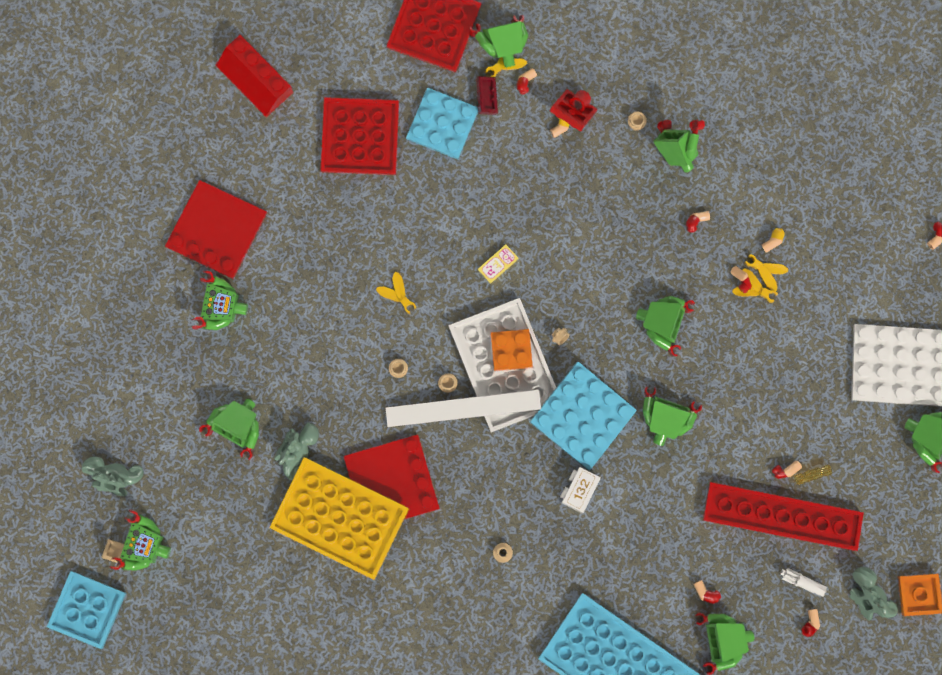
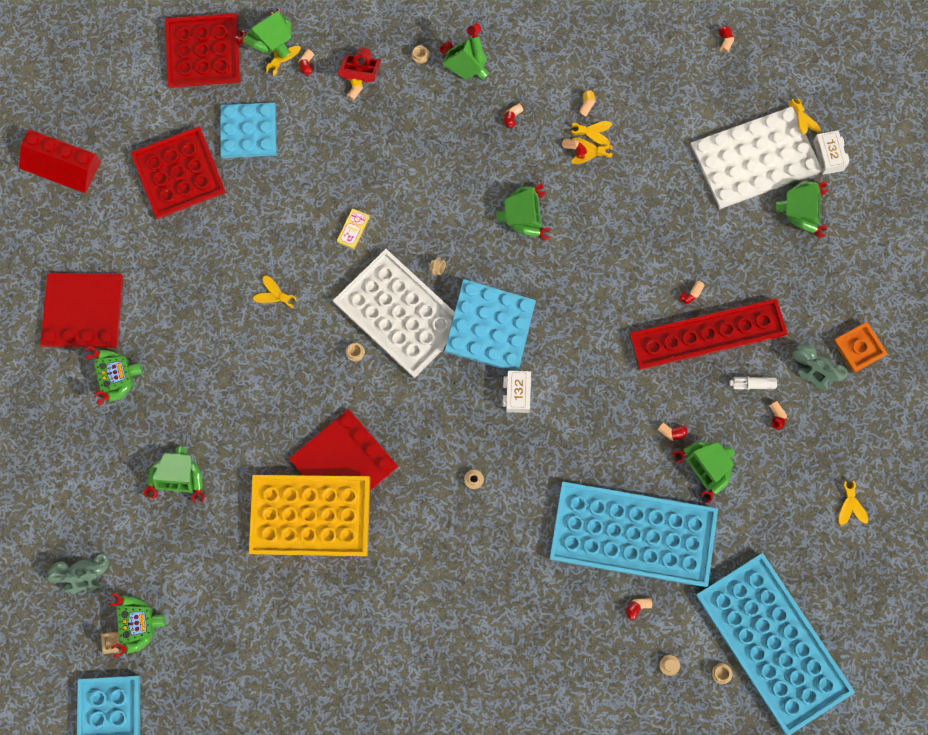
camera: 20 degrees left, 5 degrees down
(296, 448) = (241, 471): sand green animal -> none
(398, 368) = (304, 359): tan plate -> none
(463, 408) = (379, 367): white tile -> none
(487, 95) = (277, 89): dark red plate -> none
(511, 350) = (399, 296): orange plate -> none
(667, 418) = (565, 293): bright green torso -> none
(813, 474) = (717, 286): clear yellow axle -> none

